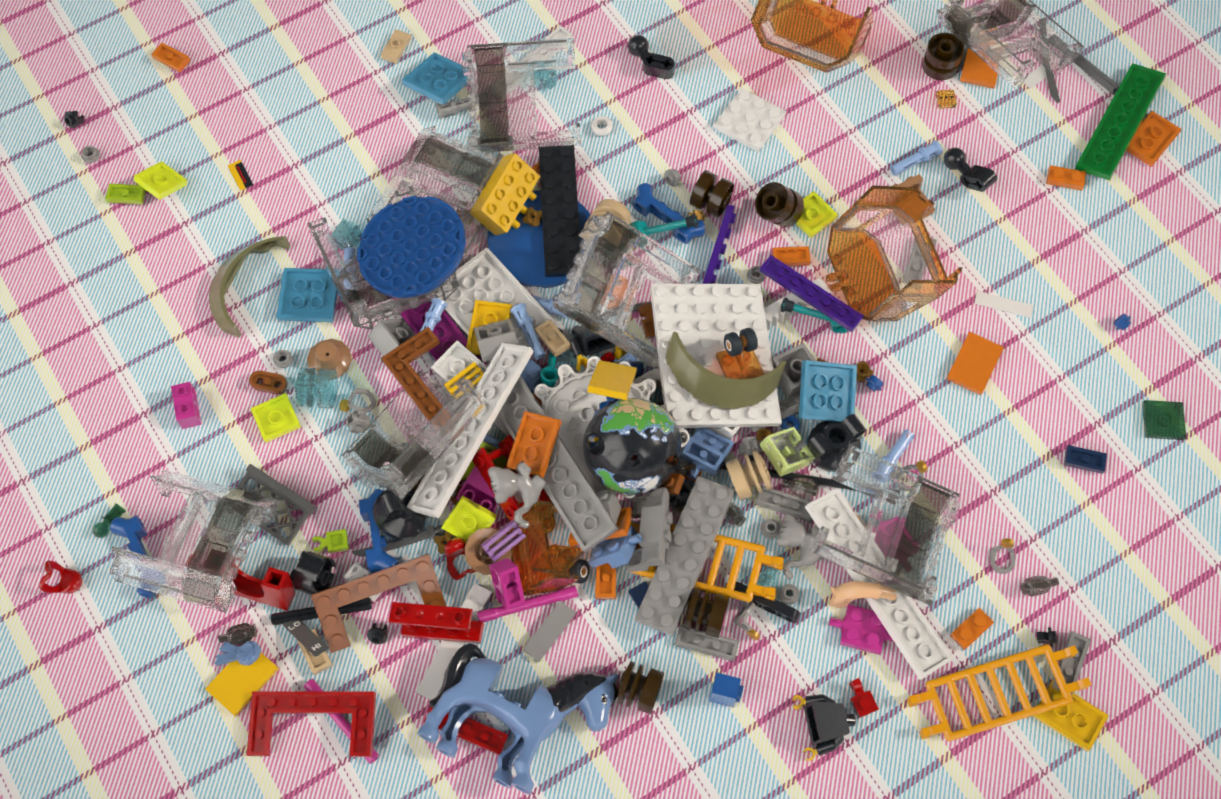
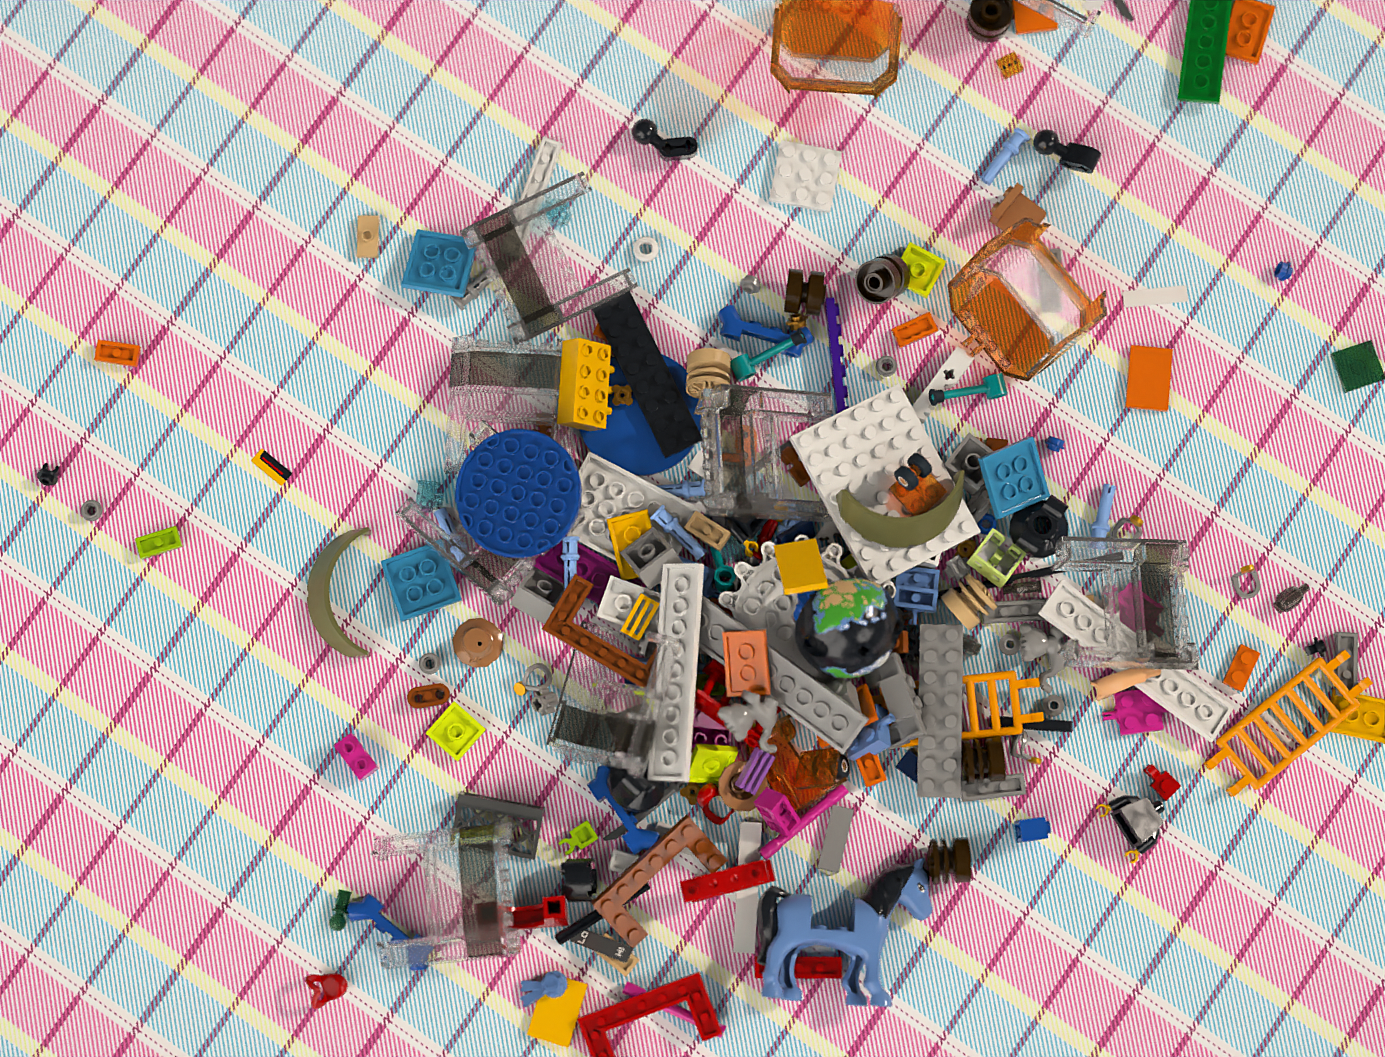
camera: 25 degrees left, 15 degrees up
(160, 180) = (191, 512): neon yellow plate -> none
(239, 634) = (533, 969): clear smoke plant -> none
(316, 387) = (486, 684): clear light blue wheel -> none
(377, 635) = (671, 913): black plate -> none
(768, 576) = (1028, 700): clear light blue brick -> none
(811, 293) = (956, 372): dark purple plate -> none
(867, 372) = (1037, 428): pearl gold plate -> none
(1066, 177) = (1171, 116): orange plate -> none
(1085, 459) = (1293, 443): dark blue plate -> none

